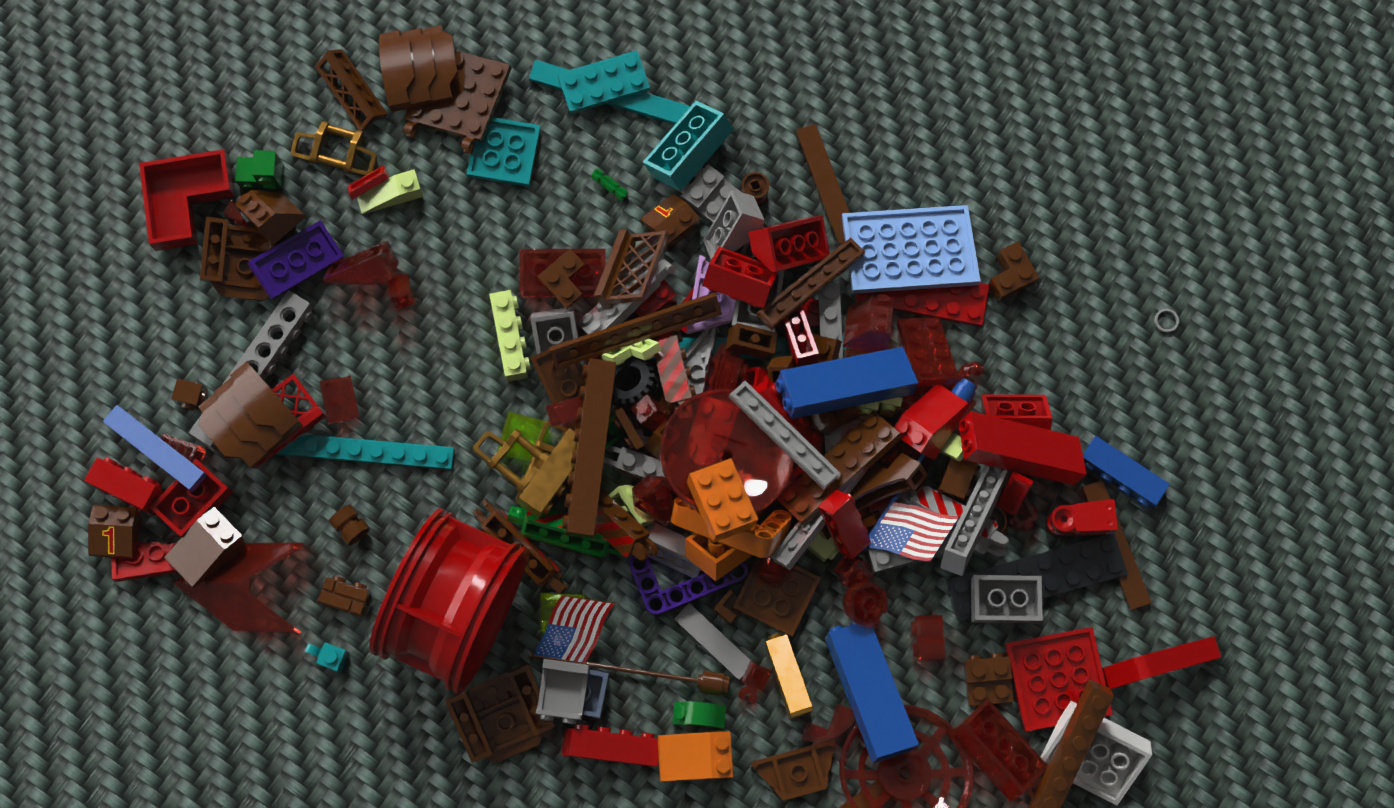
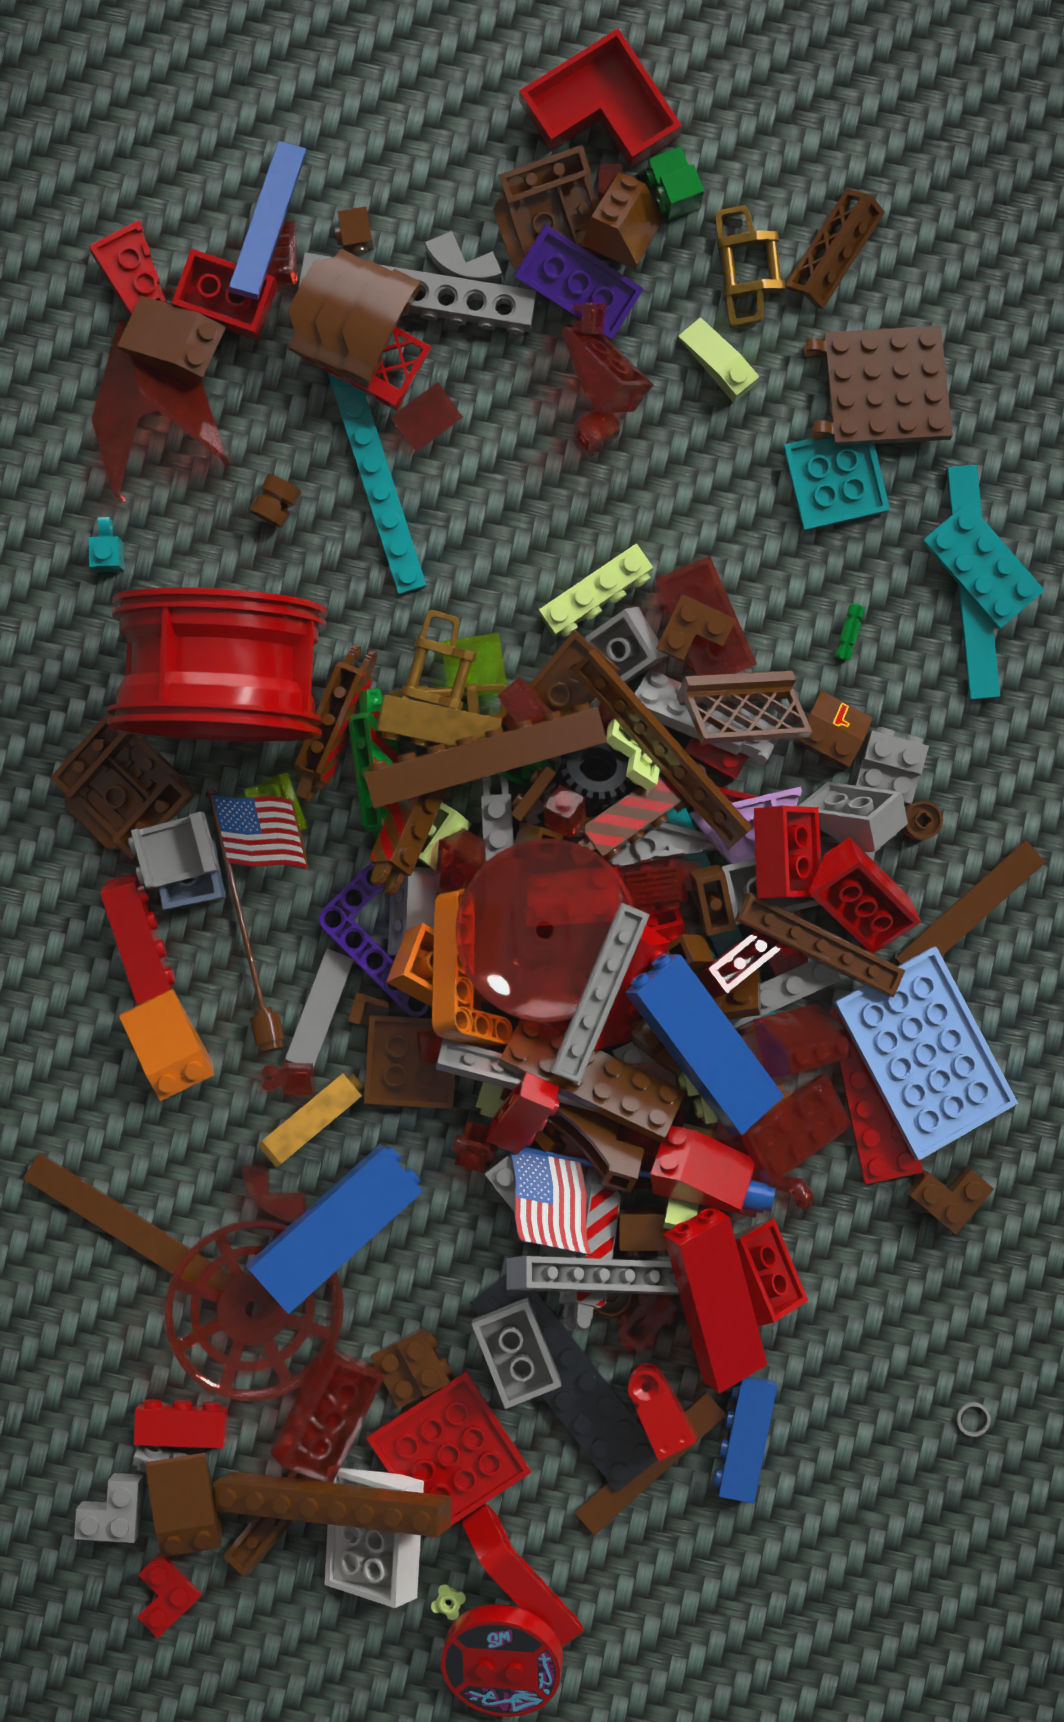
camera: 70 degrees right, 10 degrees up
(113, 531) = (146, 219): reddish brown slope -> none
(124, 484) = (207, 205): red brick -> none
(239, 339) = (449, 259): none -> light grey brick
(323, 259) = (592, 317): none -> clear red tile
(344, 596) = (186, 535): reddish brown brick -> none
(368, 182) = (719, 325): red tile -> none
(417, 67) = (899, 317): reddish brown slope -> none
(688, 145) = (941, 711): teal brick -> none
(699, 714) = (221, 1029): green brick -> none
(722, 500) = (477, 950): orange brick -> none
(798, 770) = (204, 1176): reddish brown wing -> none
(865, 603) = (438, 1177): clear red cylinder -> none
(929, 638) = (433, 1273): clear red brick -> none
(1014, 493) = (654, 1311): red tile -> none
(1167, 722) = (447, 1593): none -> yellowish green plate
(1215, 698) = (502, 1660): none -> brick

